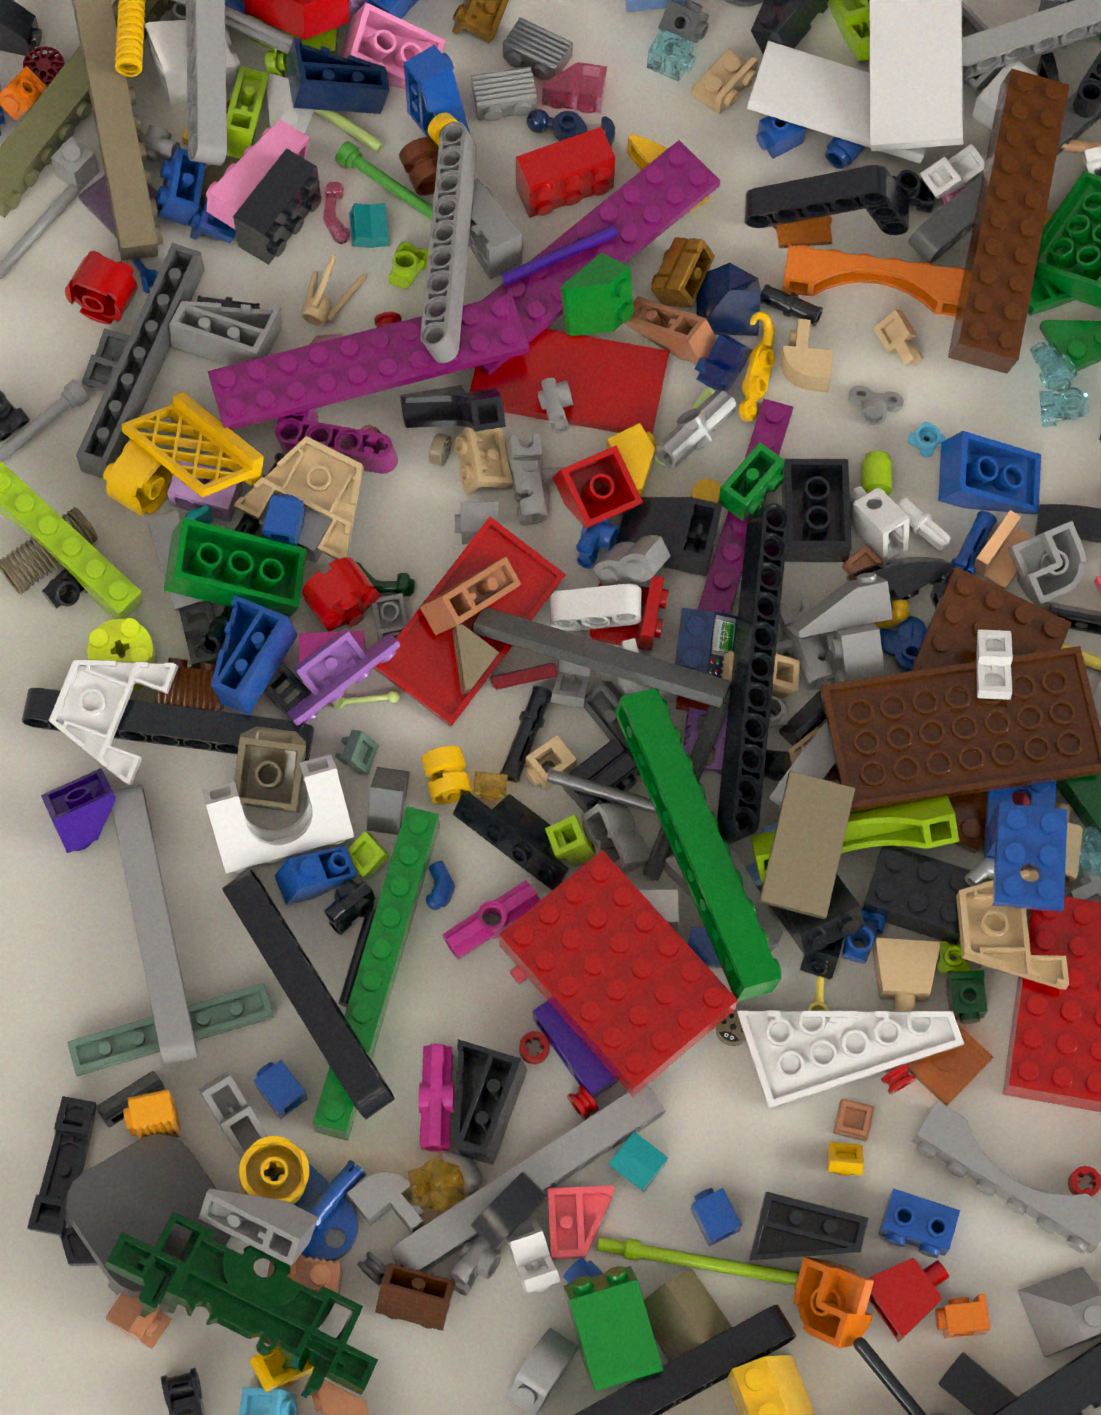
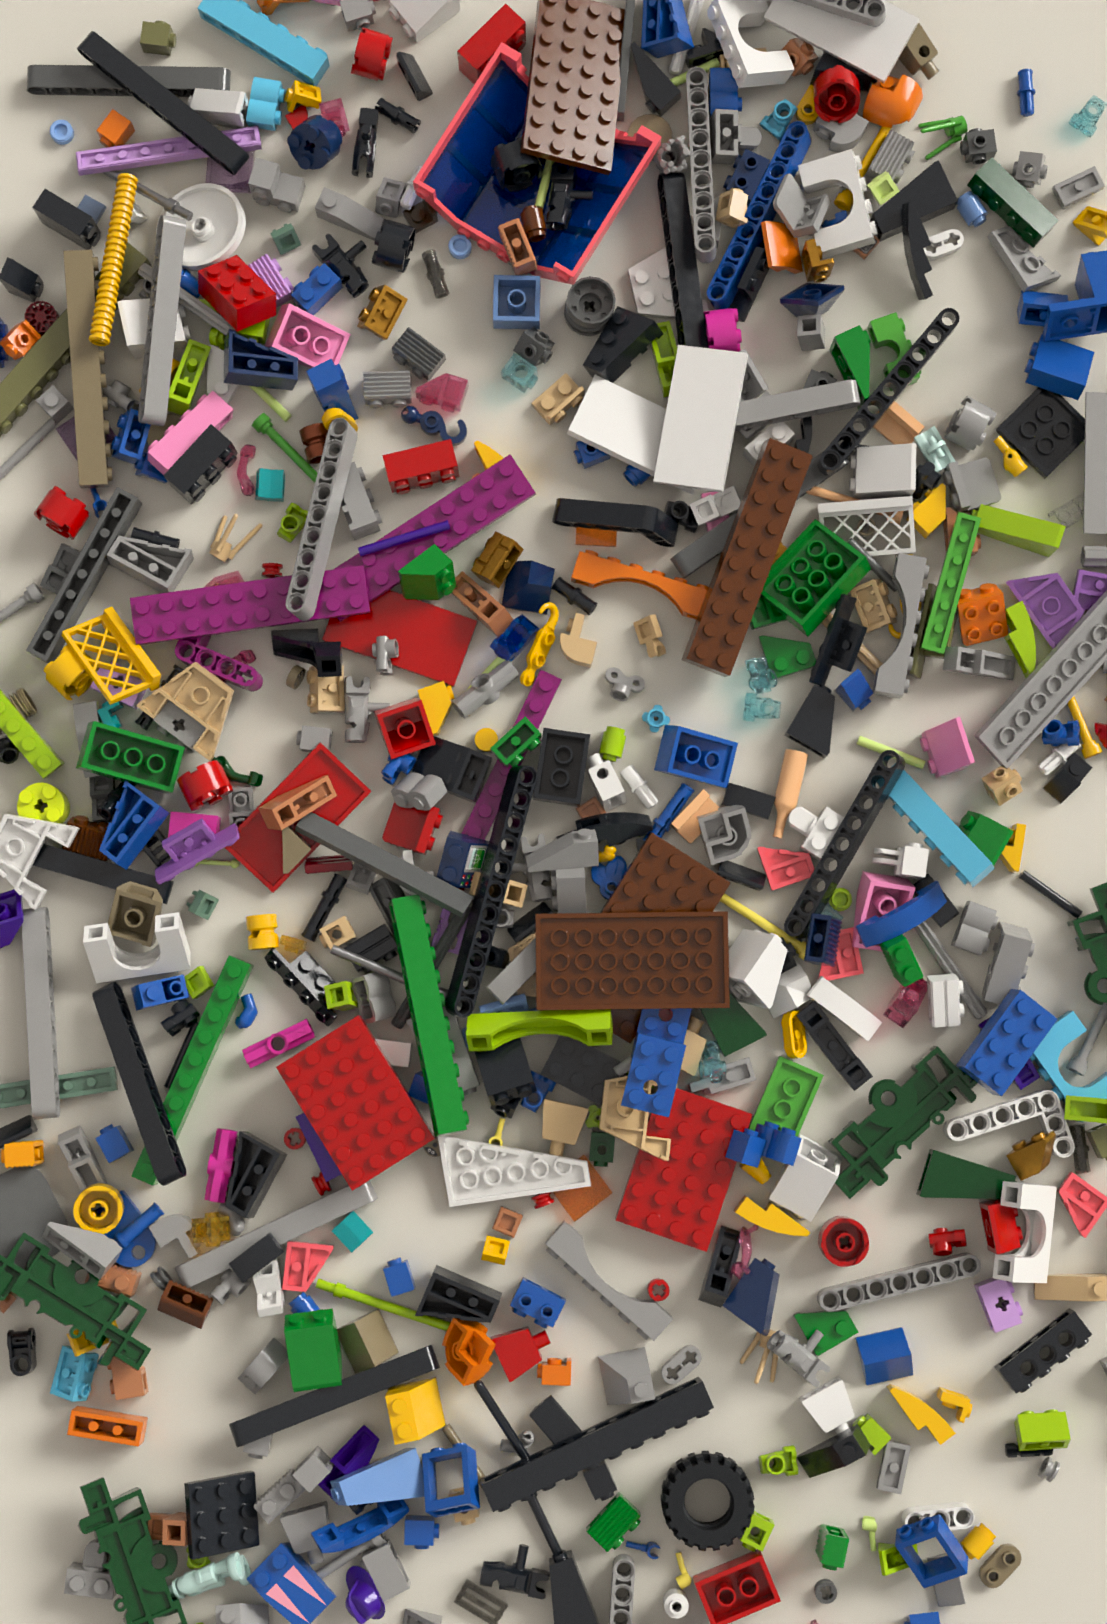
camera: 10 degrees right, 15 degrees up
(284, 519) = (170, 724): blue brick -> none
(387, 800) = (219, 941): dark grey slope -> none
(596, 607) = (388, 821): white beam -> none
(807, 845) = (502, 1034): dark tan tile -> none
(994, 664) = (661, 918): white slope -> none

